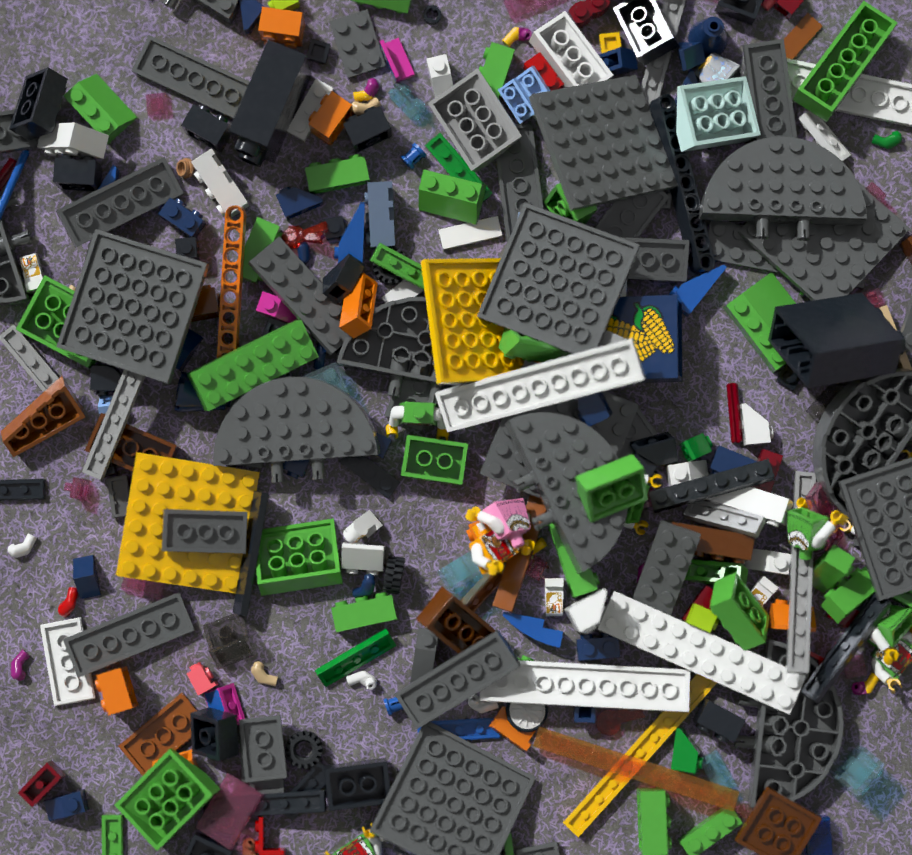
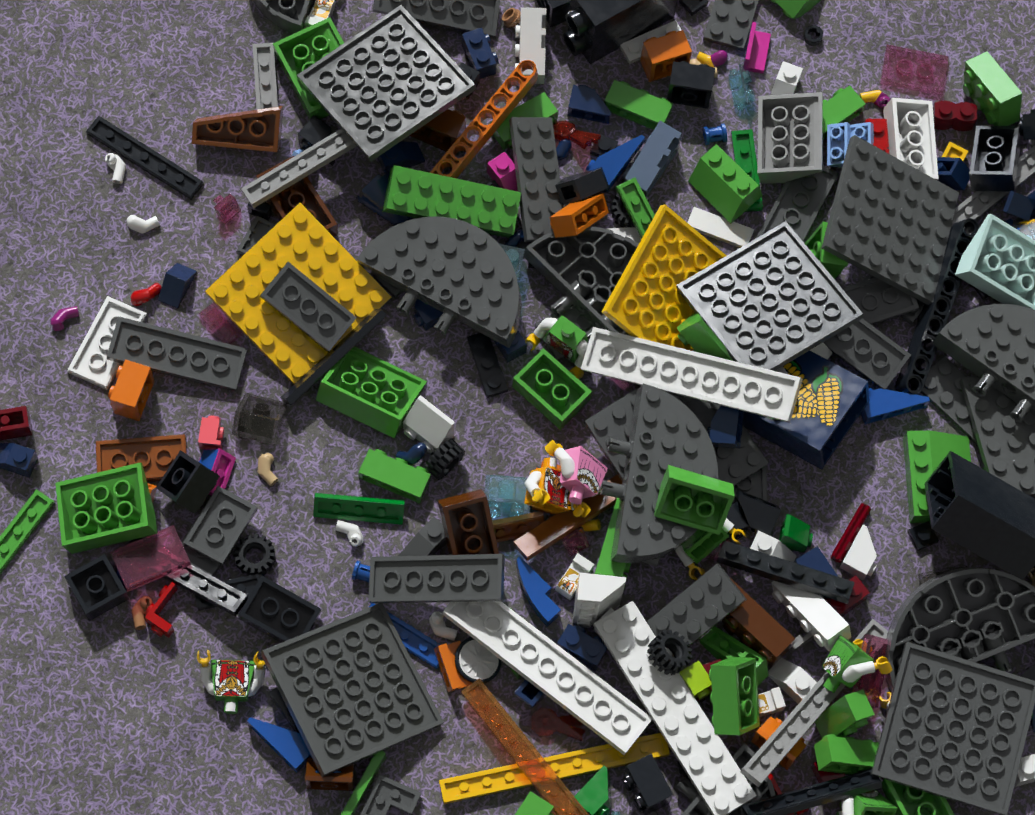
camera: 30 degrees right, 15 degrees down
(364, 525) = (447, 400): white leg -> none
(663, 621) = (676, 646): none -> black tyre
(725, 518) = (779, 608): light grey plate -> none

